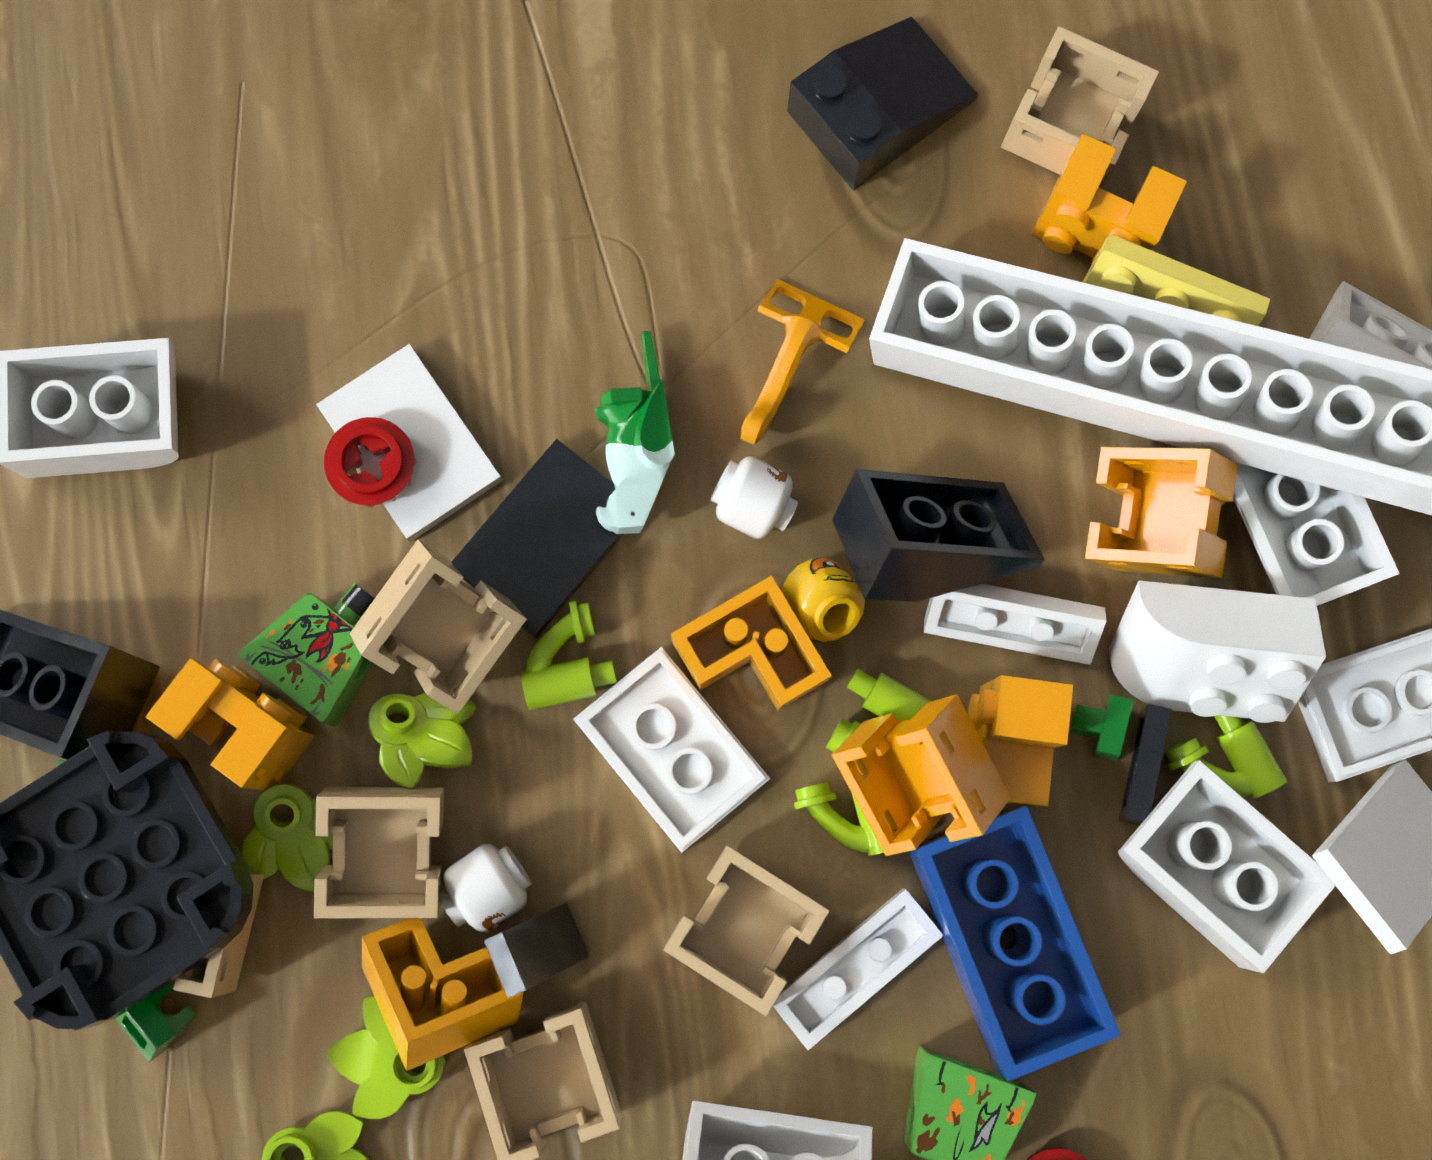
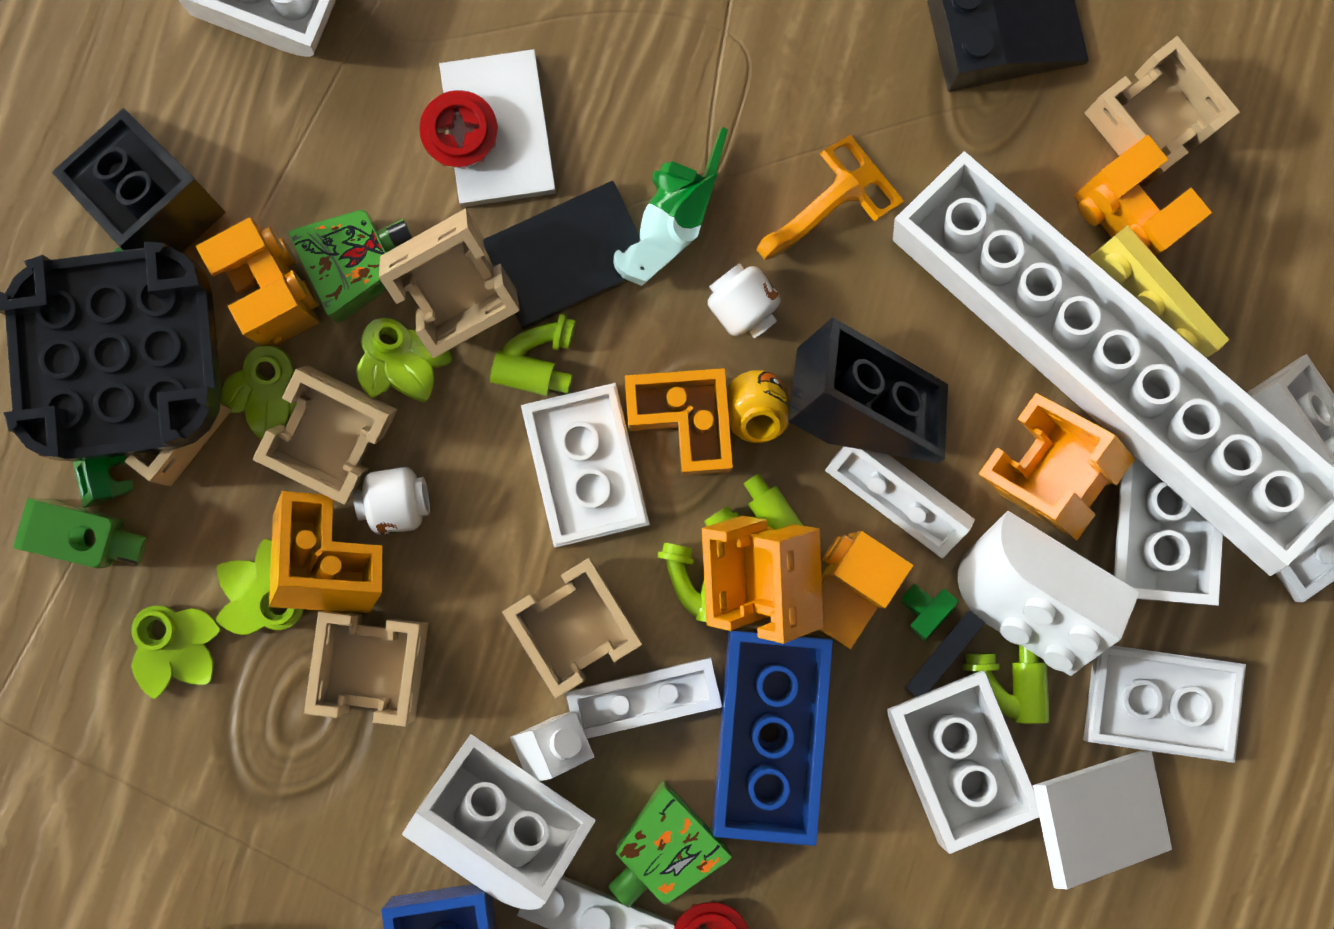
camera: 25 degrees right, 5 degrees up
(134, 1102) = (60, 533): none -> bright green torso
(536, 949) = (408, 565): black tile -> none
(786, 1069) = (552, 746): none -> white brick

